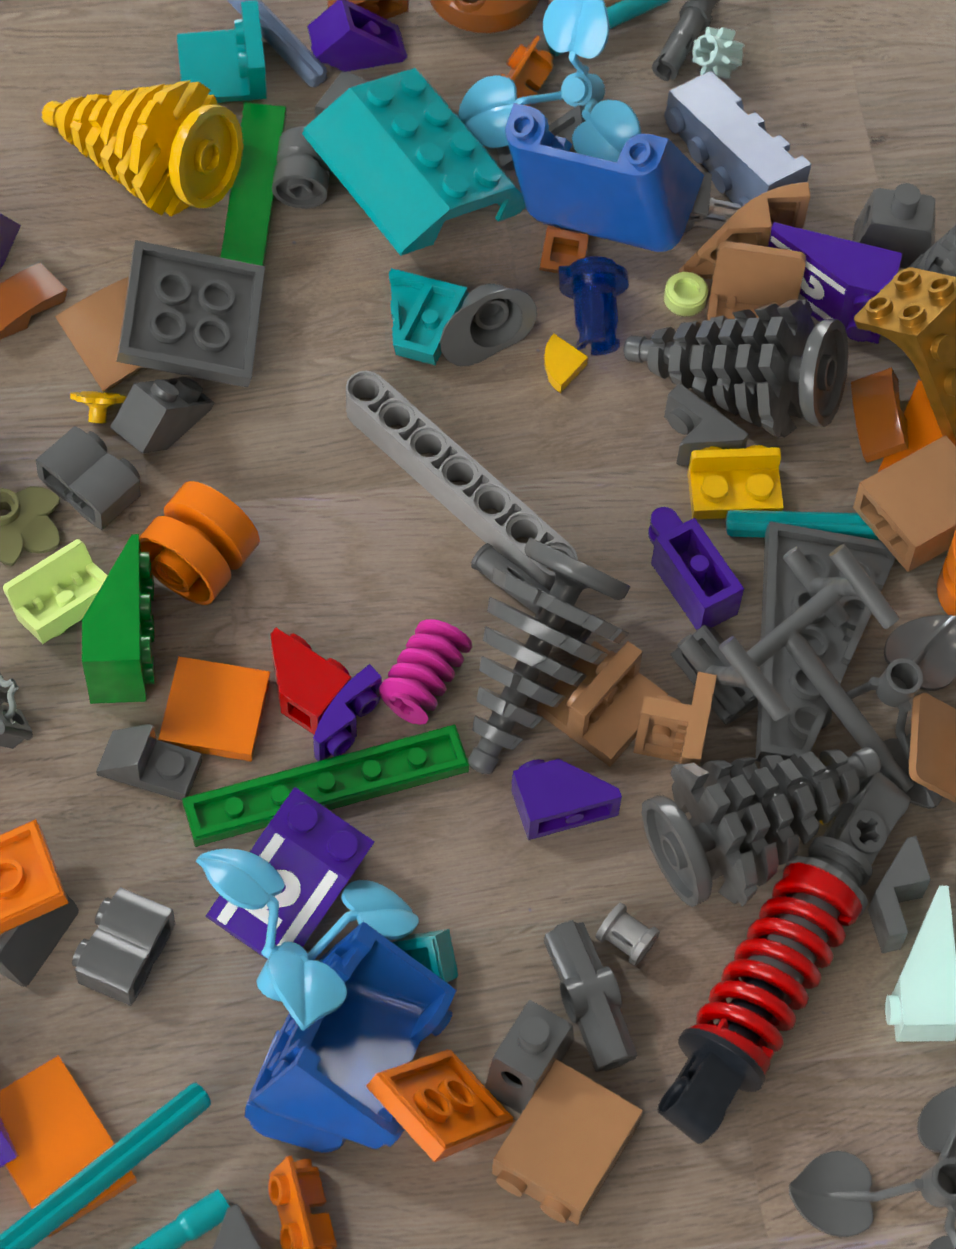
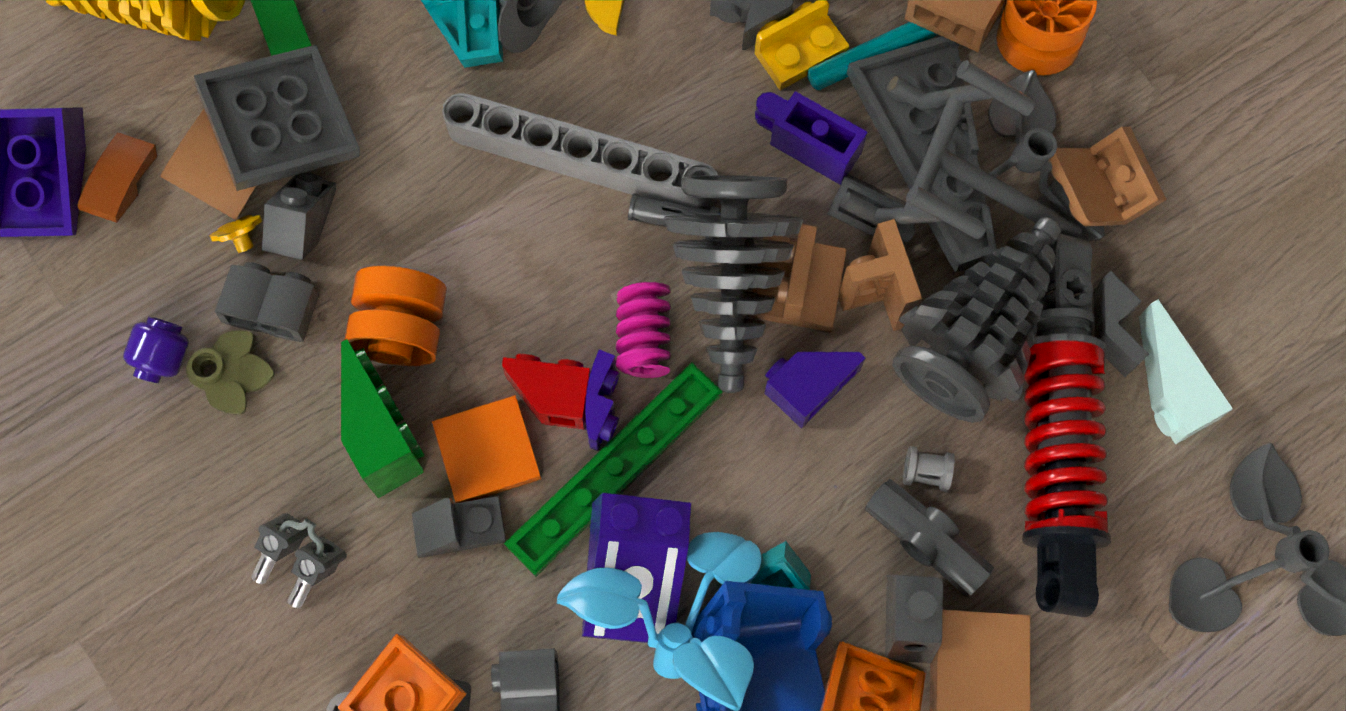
camera: 25 degrees left, 10 degrees up
(55, 591) = (299, 418): yellowish green bracket -> none

